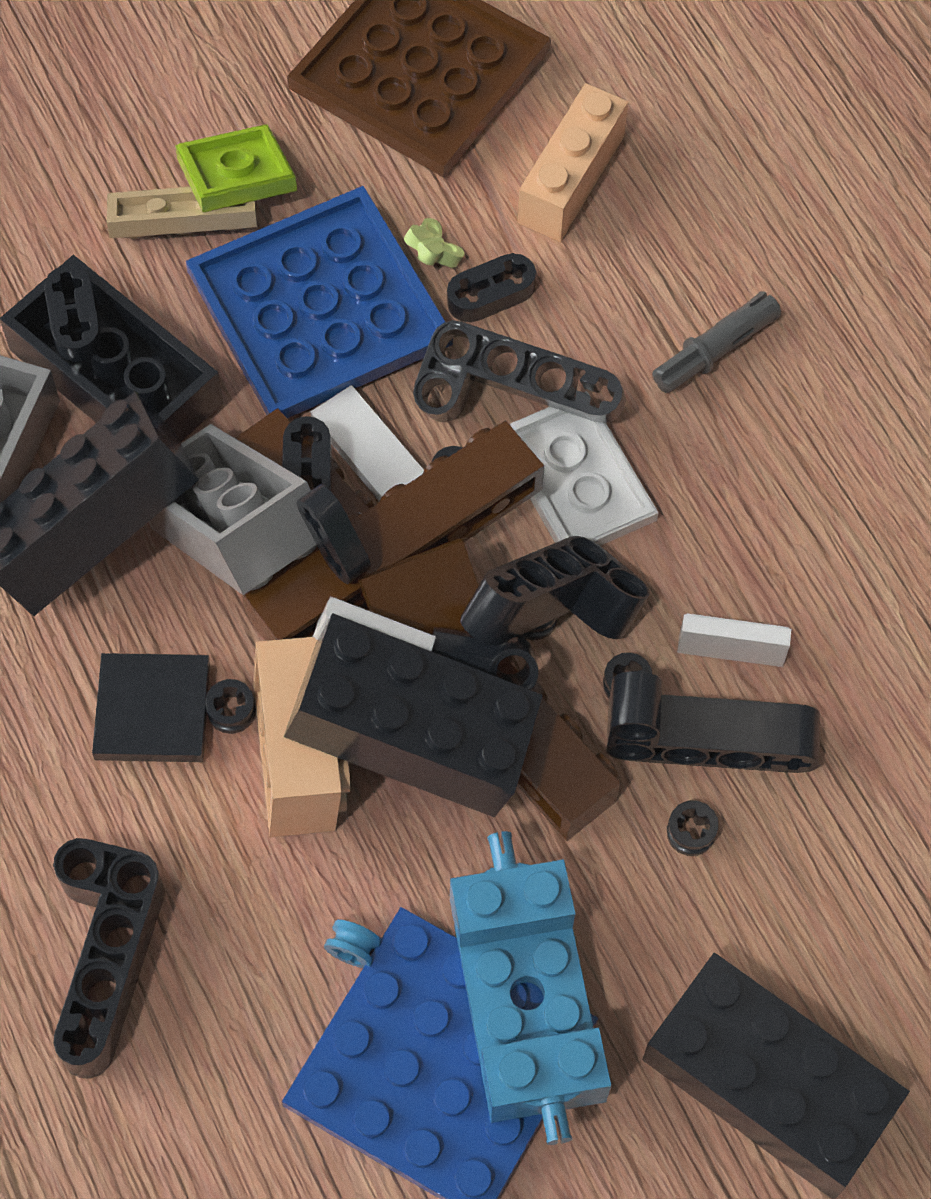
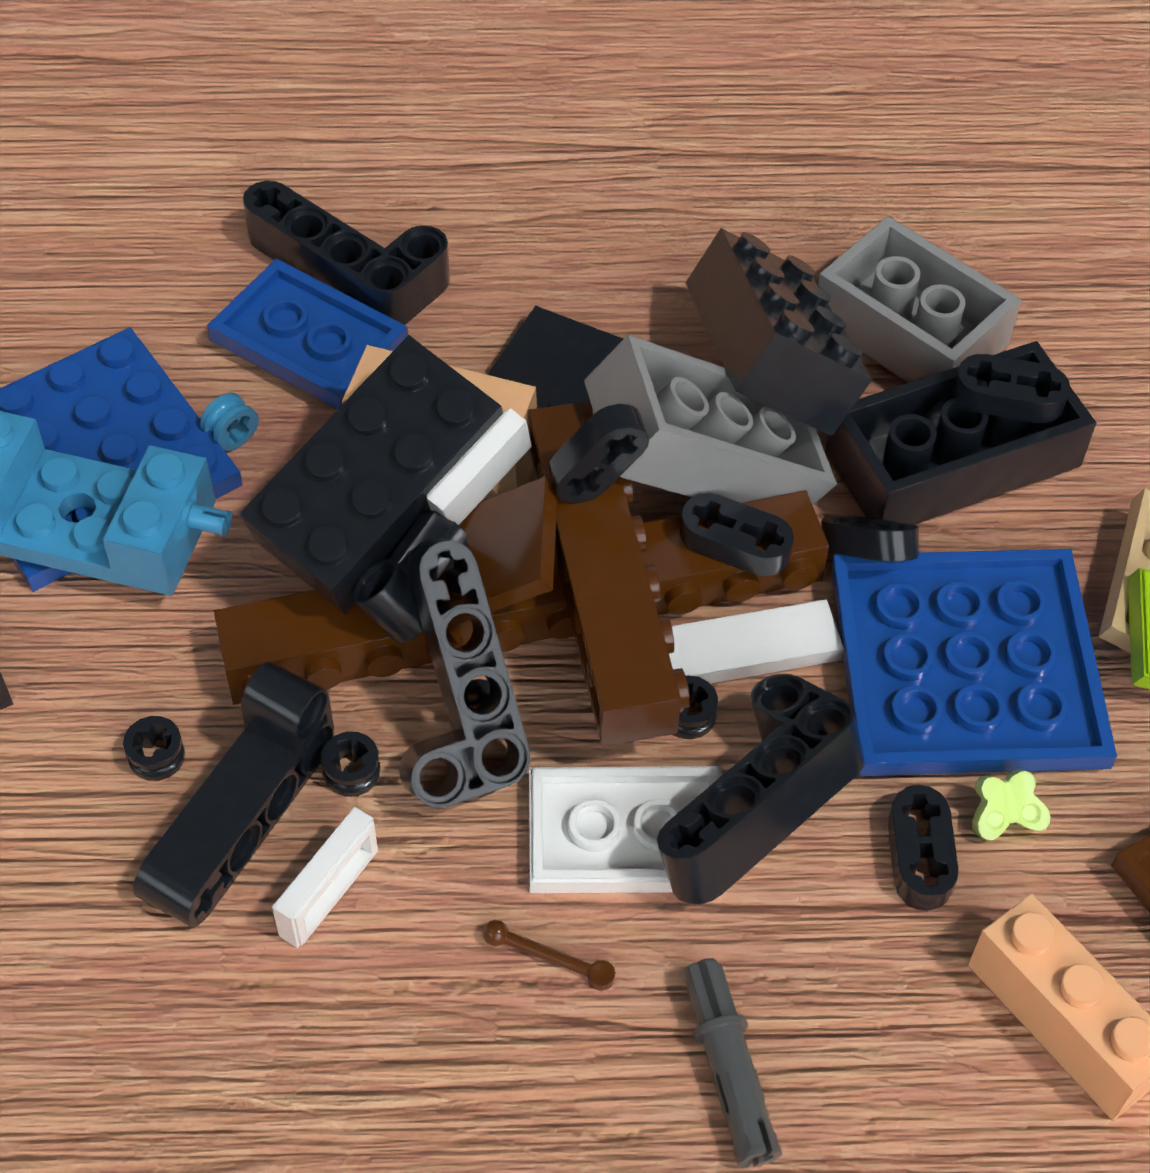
camera: 115 degrees right, 10 degrees down
(215, 934) = (303, 331): none -> blue plate
(247, 388) = (871, 538): none -> black beam
(695, 449) = (599, 974): none -> reddish brown hinge

